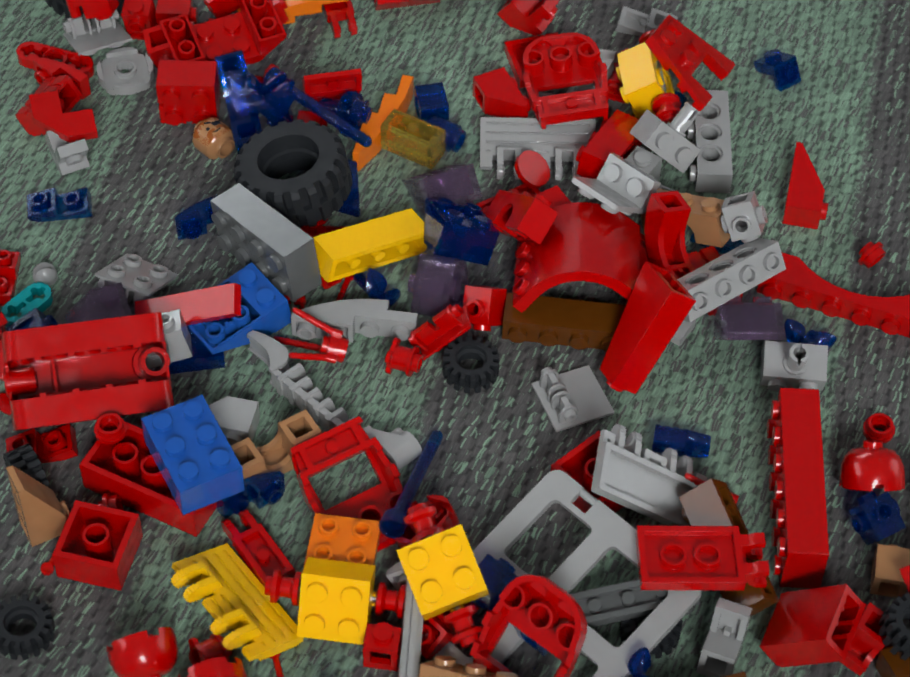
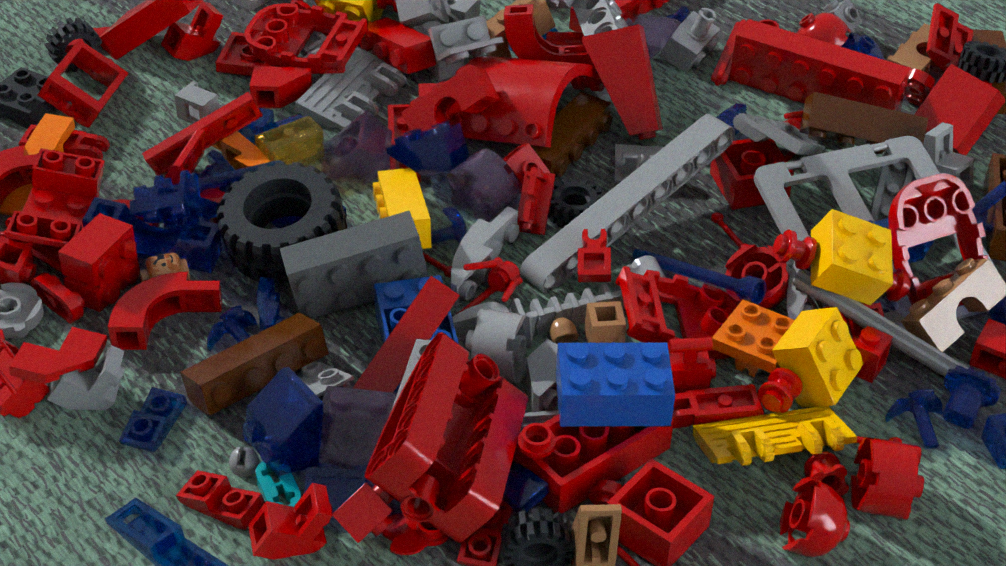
camera: 65 degrees left, 10 degrees down
(69, 277) = (285, 424): none -> clear blue slope
(78, 443) = (524, 488): none -> clear blue slope
(139, 233) = (253, 363): none -> reddish brown brick
(147, 94) = (58, 298): none -> red plate
(173, 143) = (156, 299): none -> red arch
(175, 200) = (233, 323): none -> clear blue plant
(235, 370) = (503, 339): none -> light grey brick
(289, 409) = (563, 331): none -> medium nougat hinge
(289, 513) = (691, 363): none -> red brick
(360, 112) = (240, 155): clear blue plate -> none
(372, 397) = (594, 259): none -> red plate
(383, 77) = (215, 126): none -> red tile
(403, 358) = (536, 238): red brick -> none
(438, 58) = (195, 103): none -> light grey brick
(479, 396) = (629, 200): none -> light grey beam
(530, 480) = (718, 218): none -> red hinge
(532, 169) = (382, 95): red piece -> none
(700, 558) = (889, 126): red tile -> none
(828, 407) = (723, 68): none -> red axle
(841, 572) = (918, 86): none -> red plate

